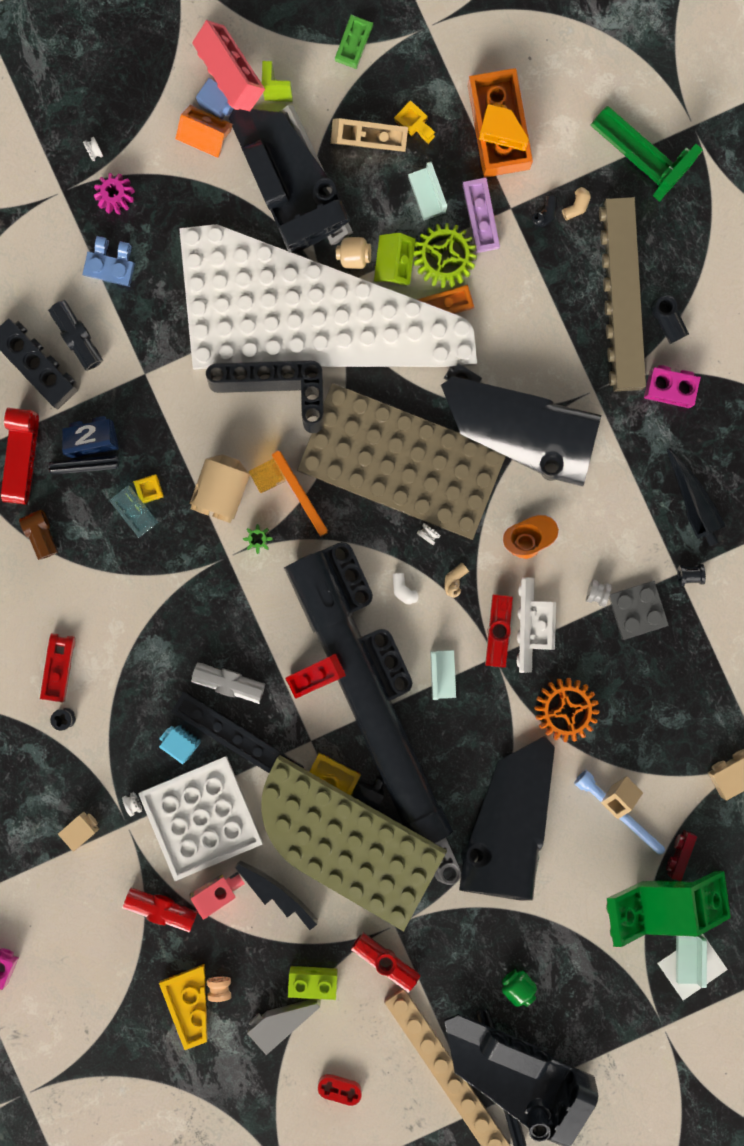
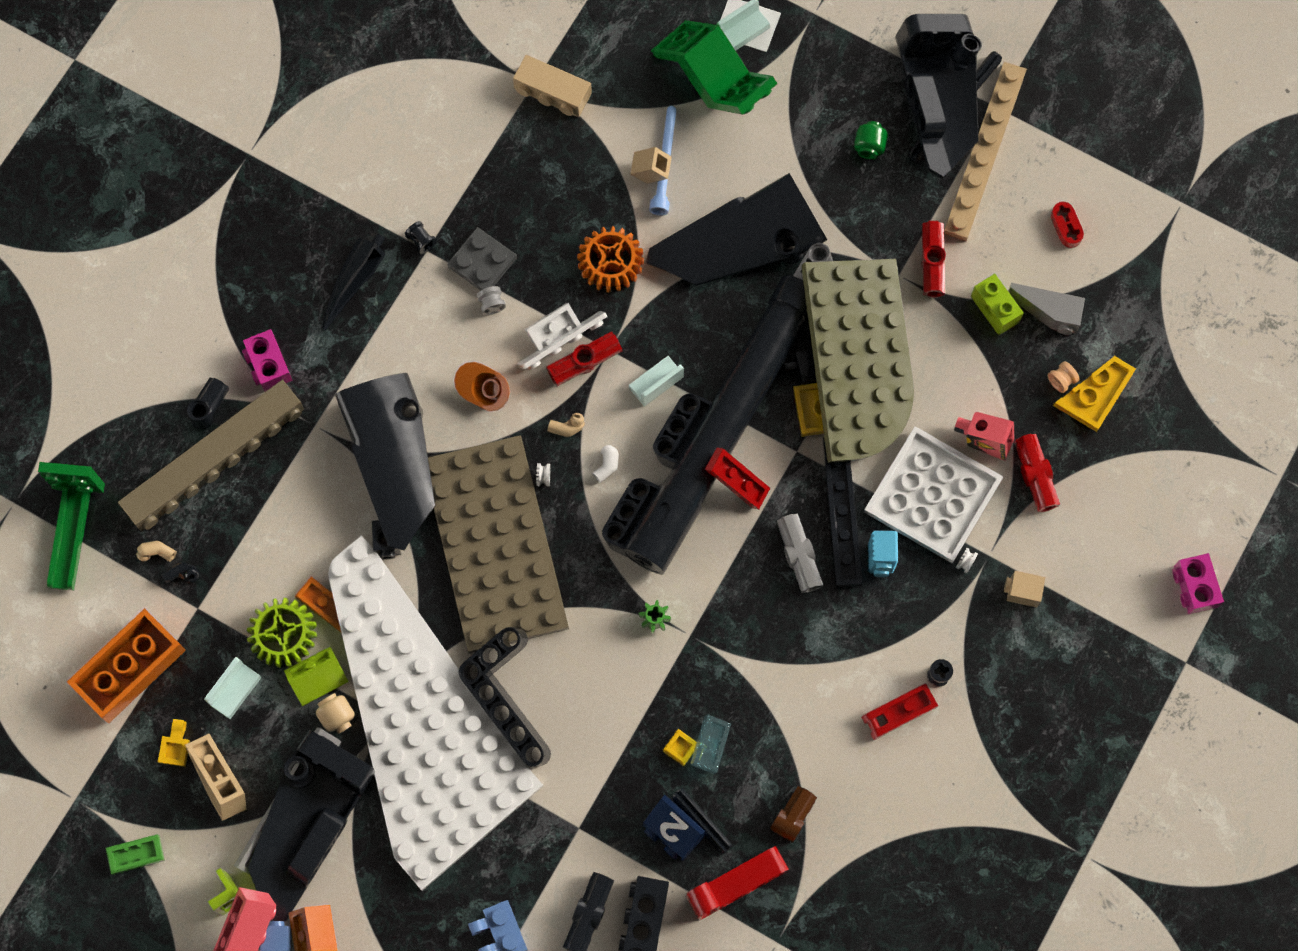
camera: 125 degrees left, 15 degrees down
(220, 487) = (634, 678): tan cylinder -> none
(267, 476) = (592, 649): clear yellow panel -> none
(268, 889) = (947, 392): black slope -> none
(300, 493) = (587, 608): orange tile -> none
(481, 215) = (222, 627): lavender plate -> none
(503, 128) = (132, 651): light orange slope -> none
(684, 846) = (669, 87): dark red plate -> none

